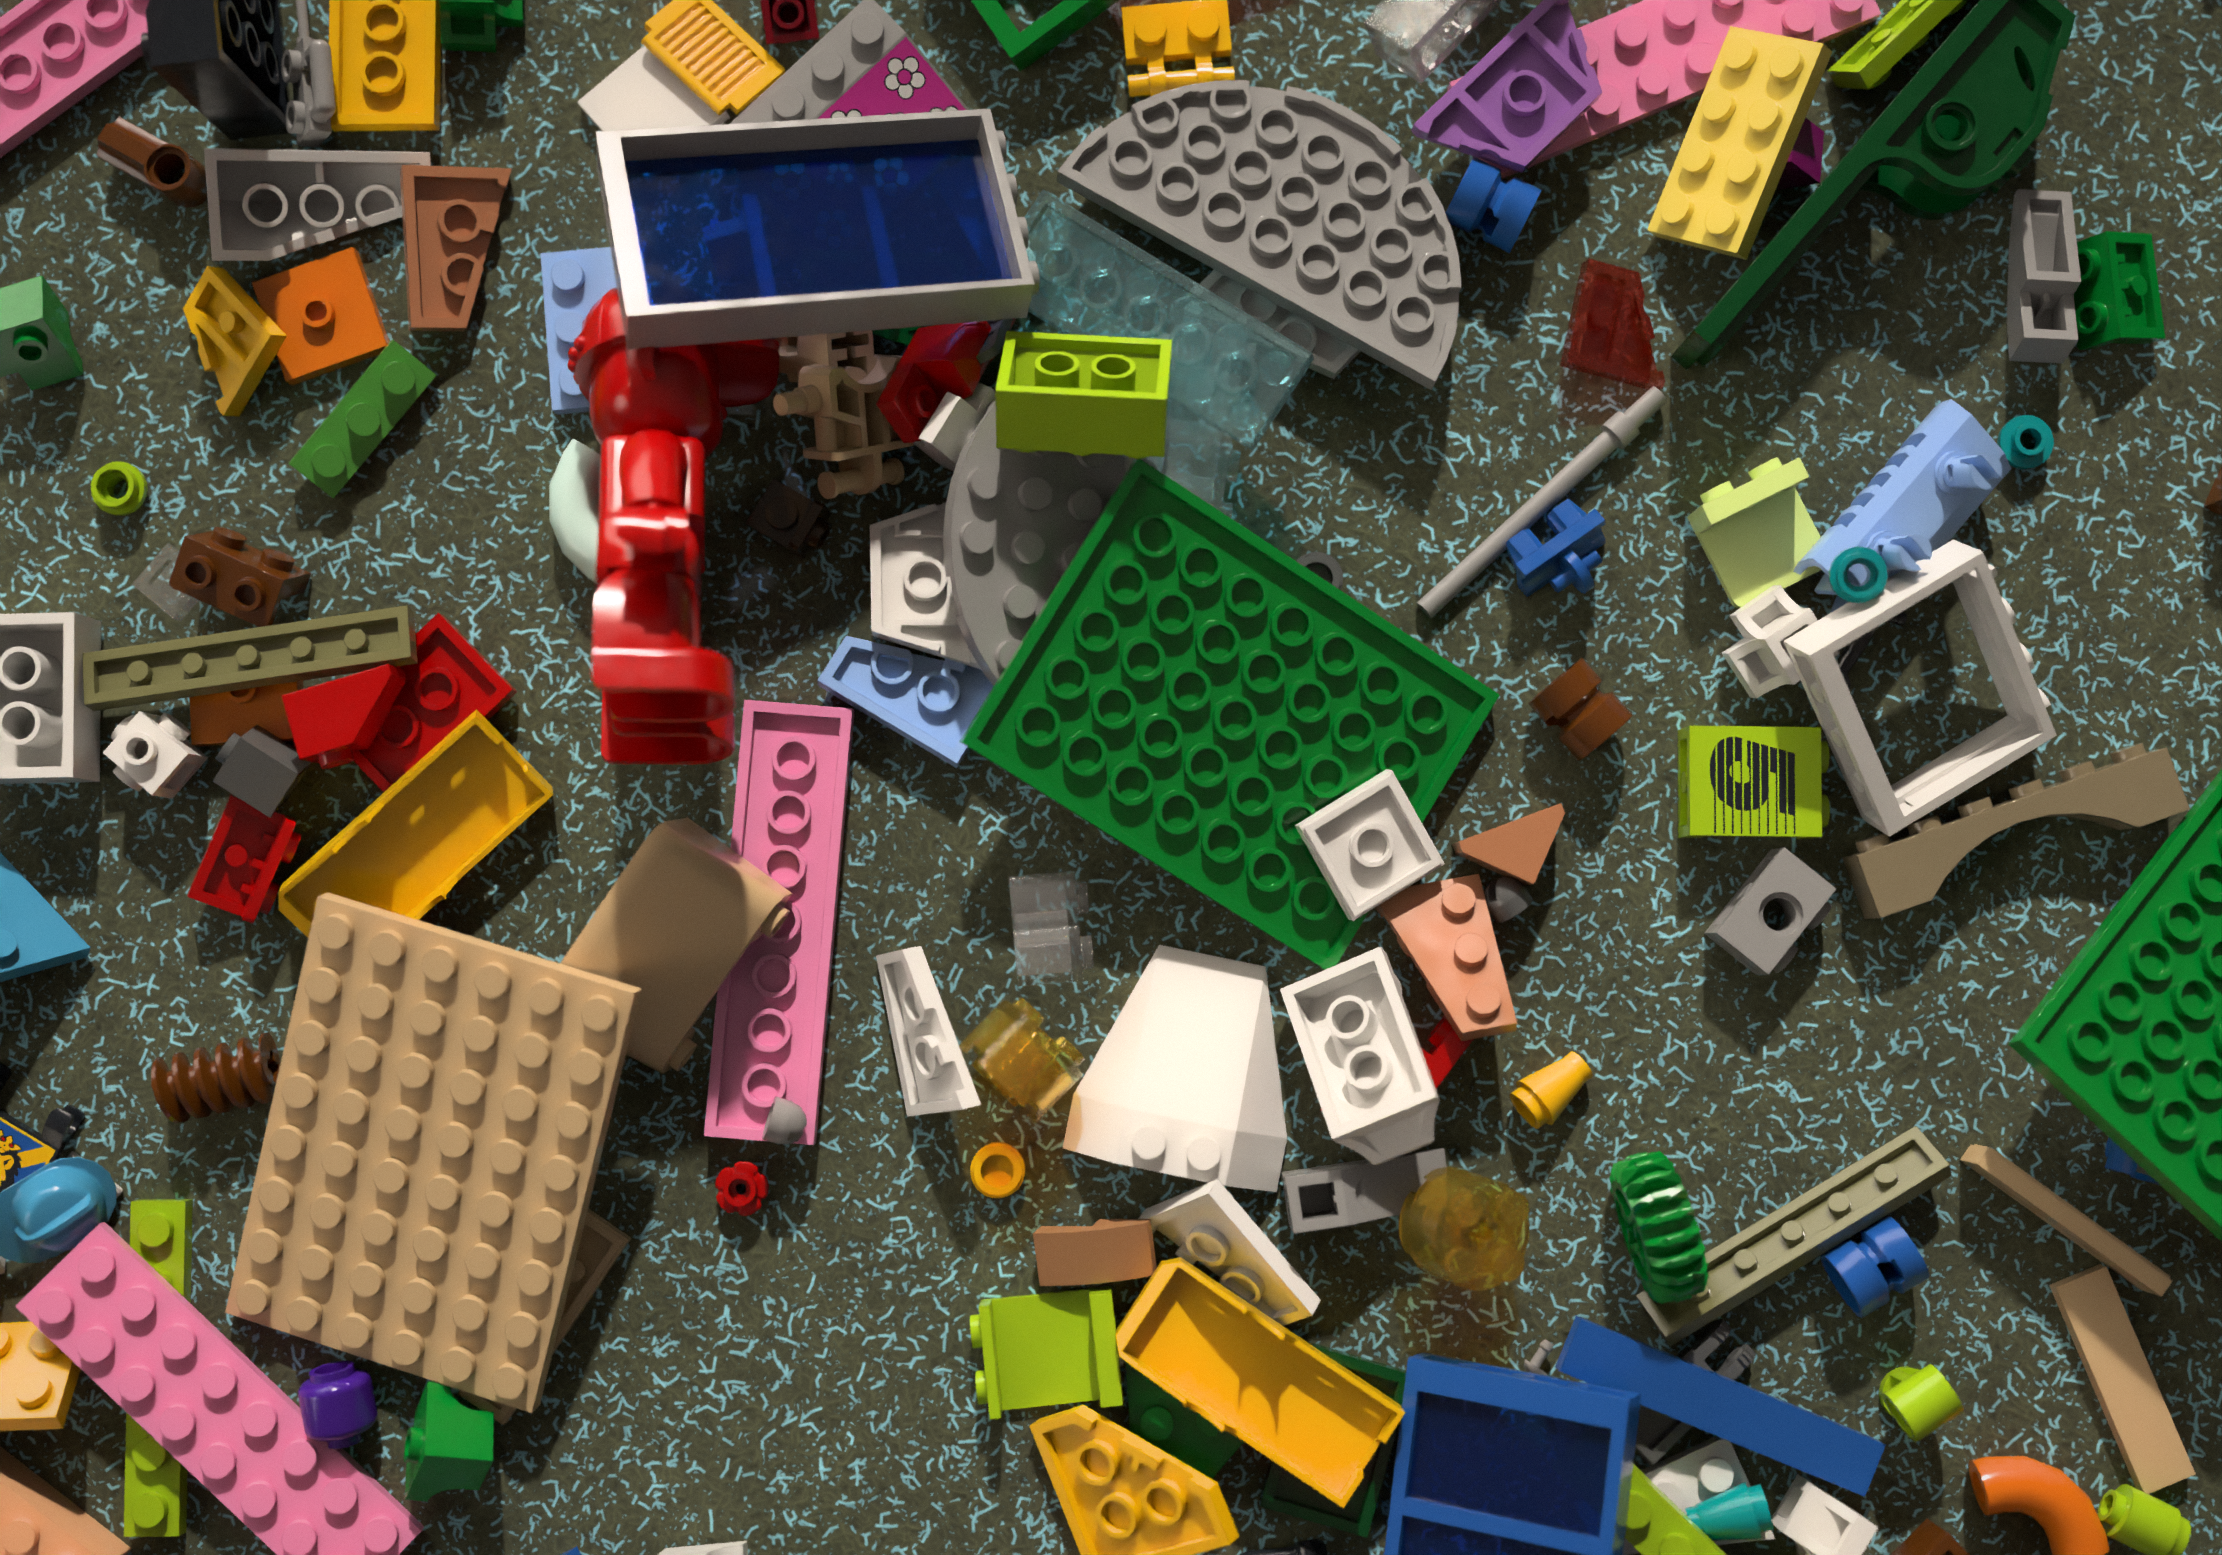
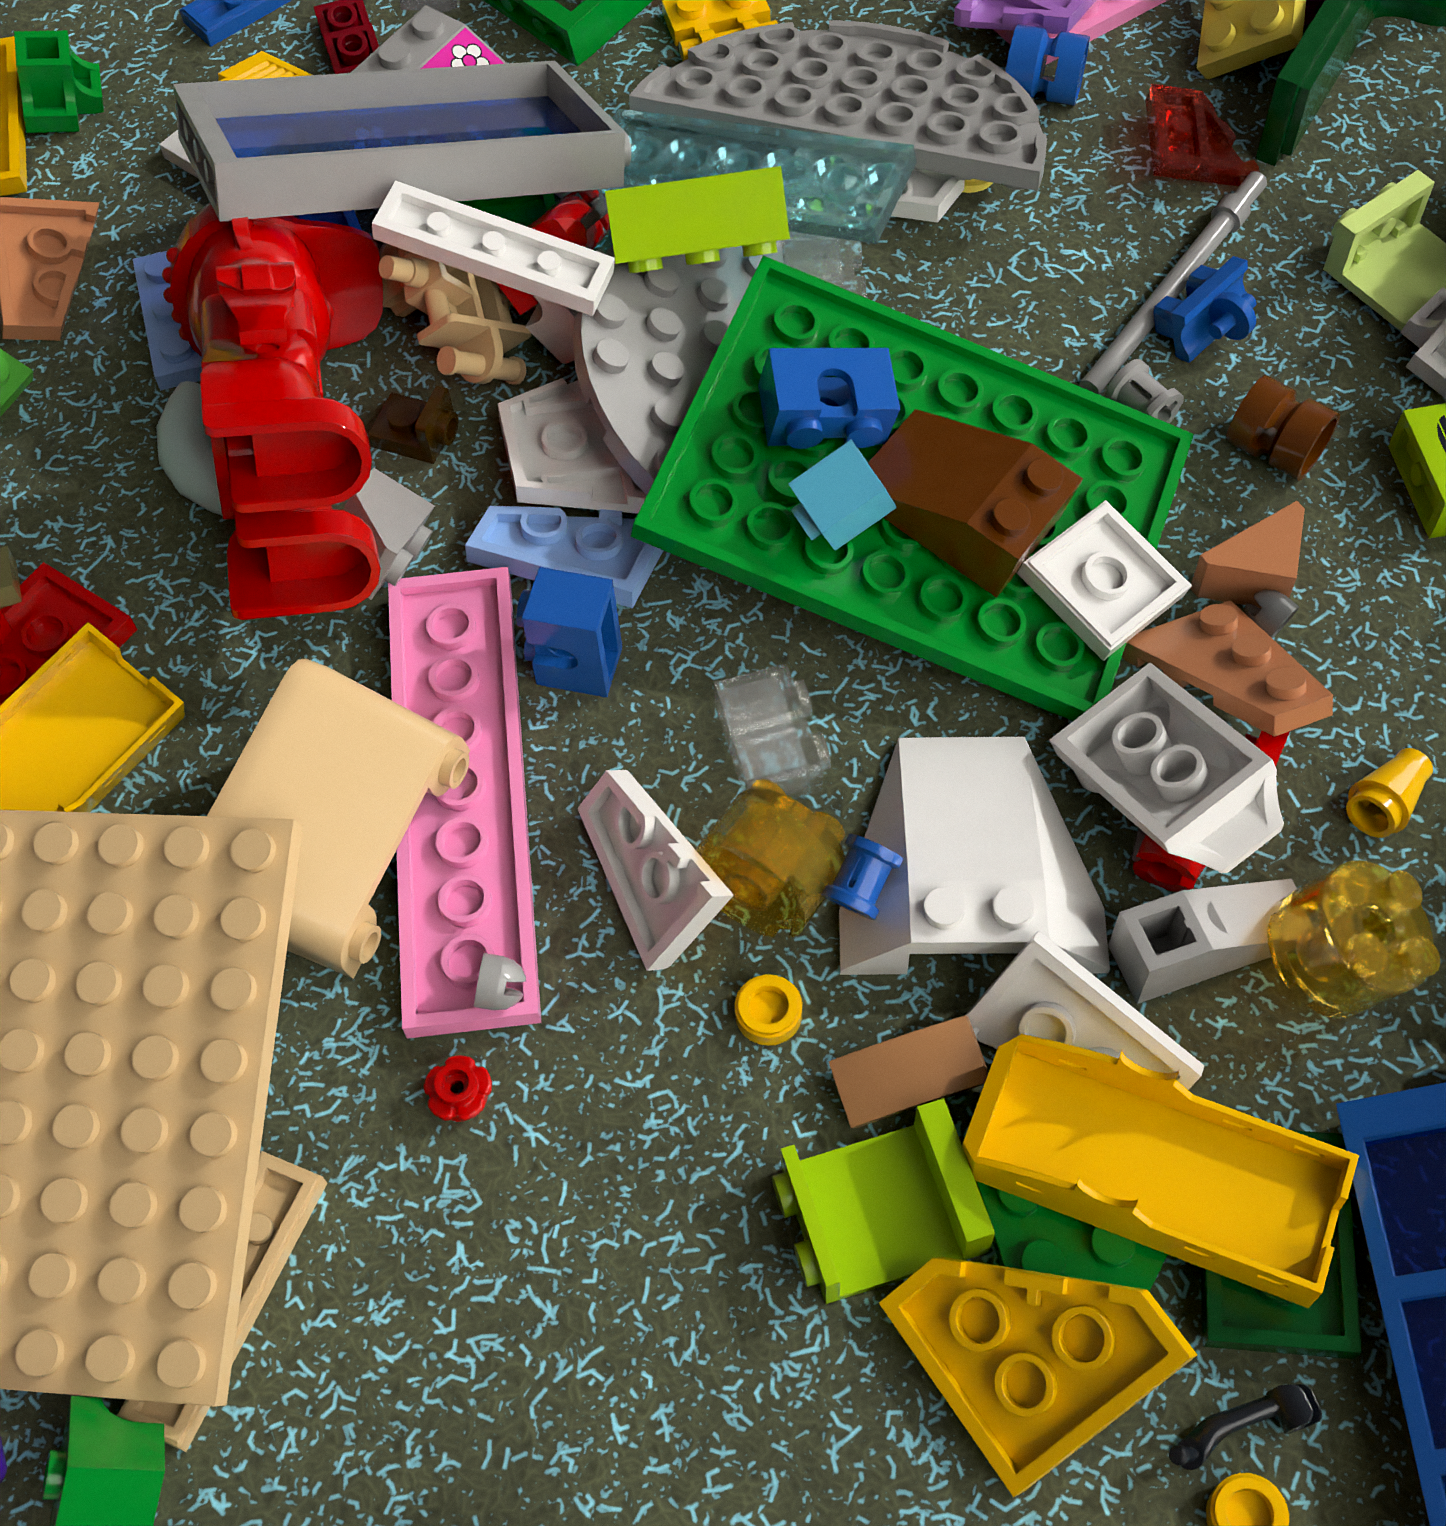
camera: 10 degrees left, 25 degrees down
(755, 647) = (396, 522): none -> light grey slope
(882, 411) = (493, 248): none -> white plate
(894, 803) = (571, 631): none -> blue brick
(1106, 1086) = (862, 876): none -> blue bush
(1147, 757) = (840, 497): none -> medium azure brick
(1193, 636) = (806, 406): none -> blue brick
(1263, 753) = (972, 494): none -> reddish brown slope
(1468, 639) = (1142, 392): none -> light grey bush

